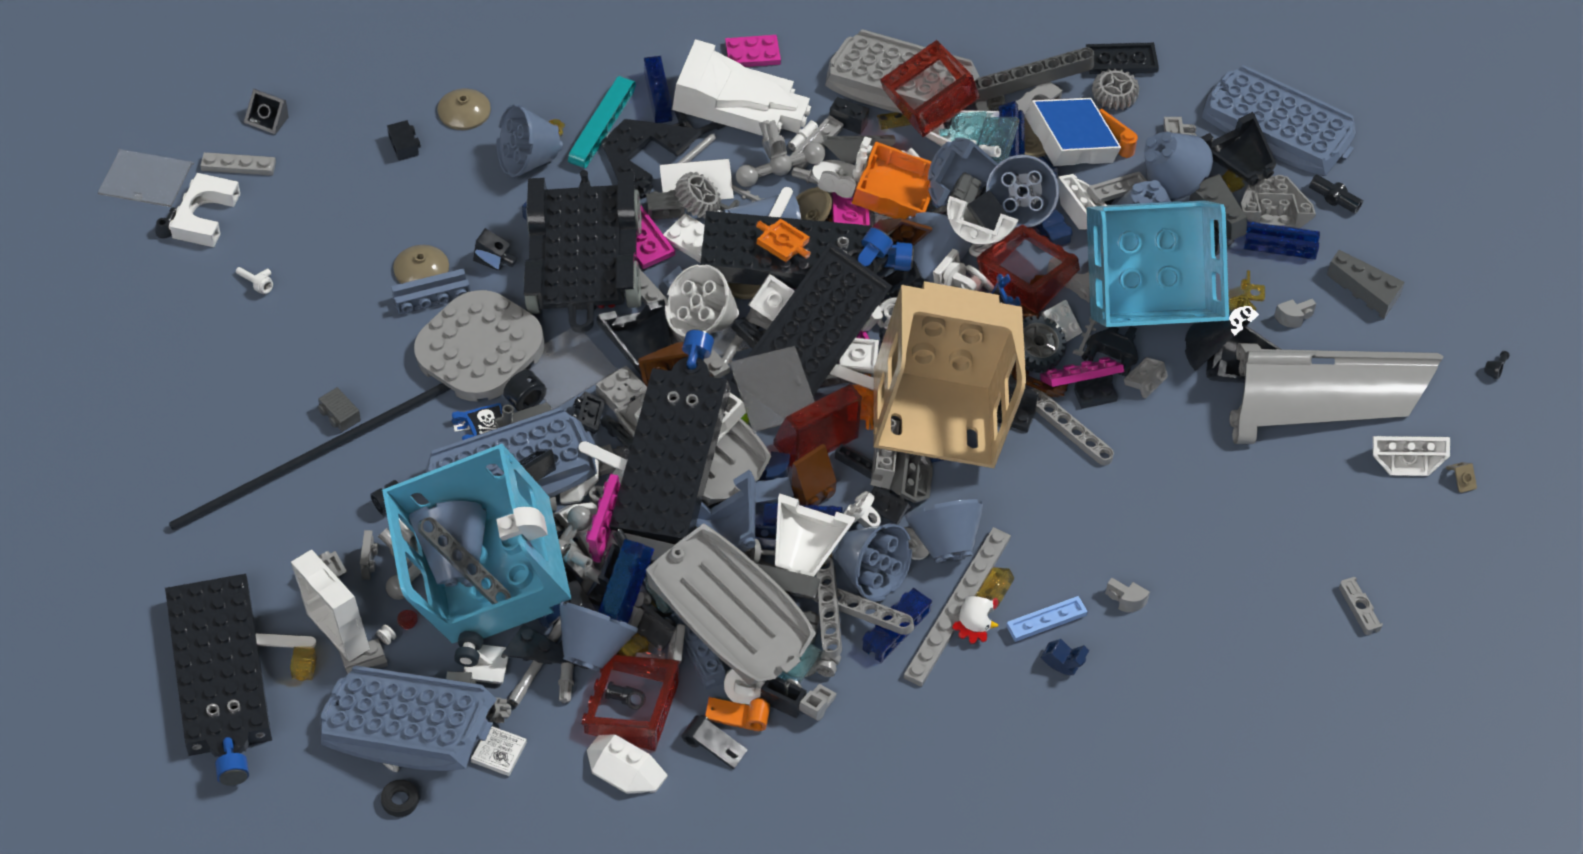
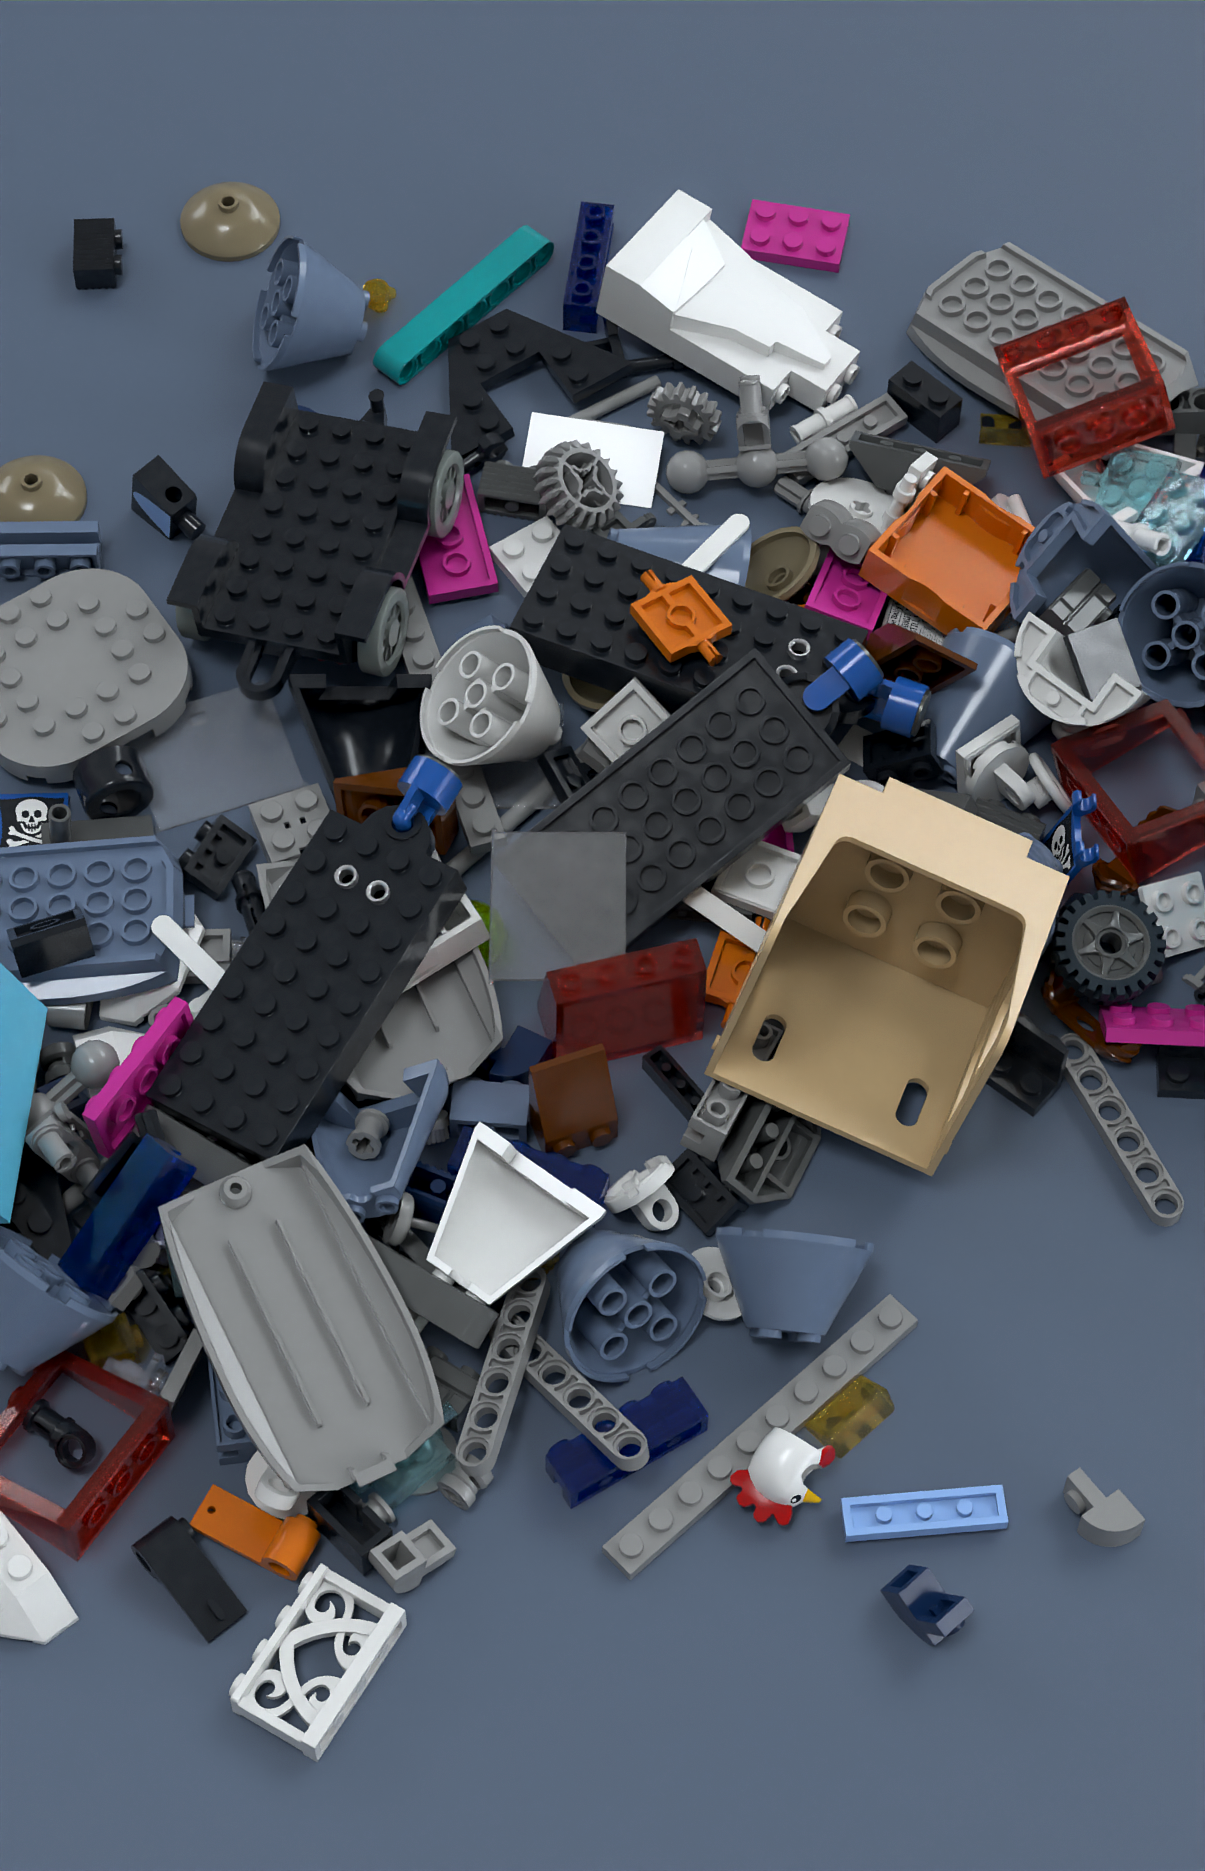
camera: 20 degrees right, 5 degrees up
(721, 517) = (370, 1128): none -> light grey bush
(736, 147) = (684, 413): none -> light grey gear
(802, 784) = (326, 1716): none -> white fence

